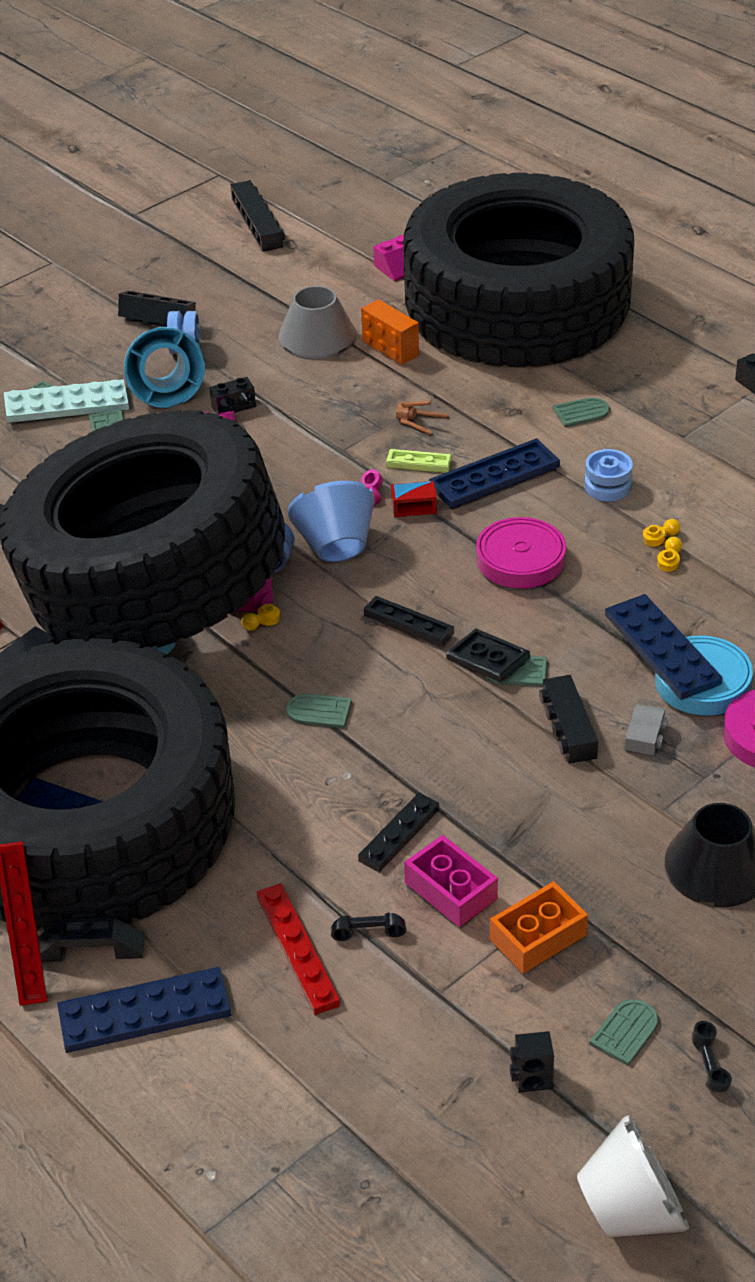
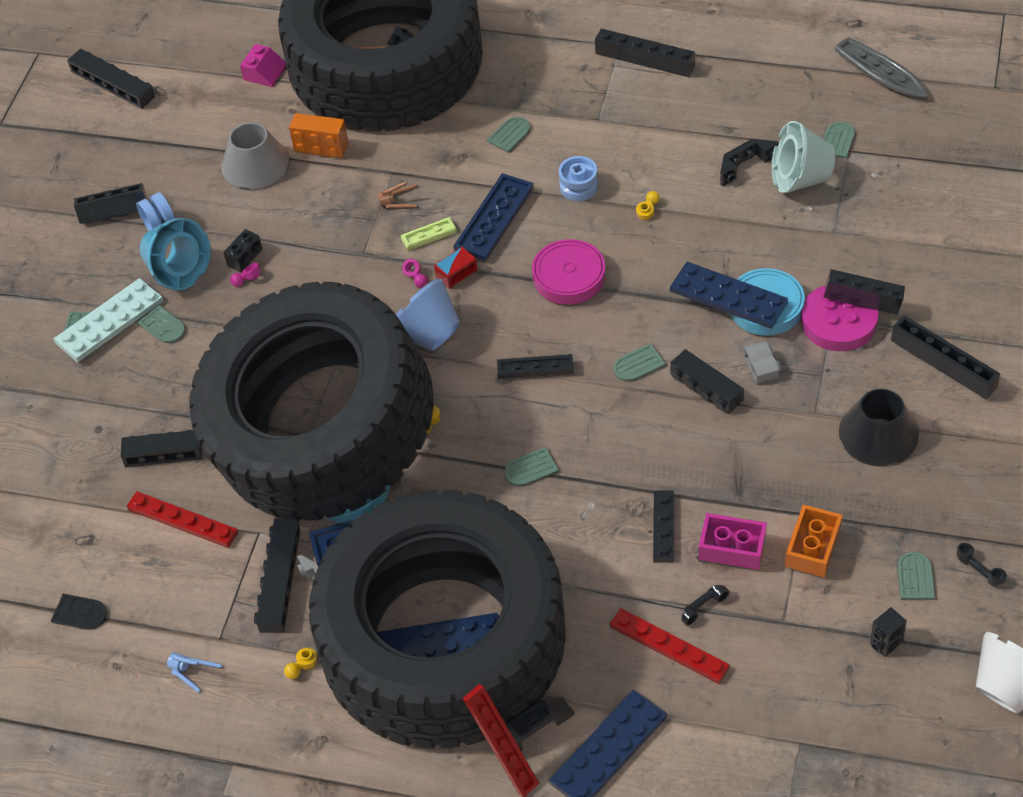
camera: 30 degrees left, 10 degrees up
(488, 655) = (612, 363): black tile -> none
(669, 559) = (666, 212): yellow plate -> none

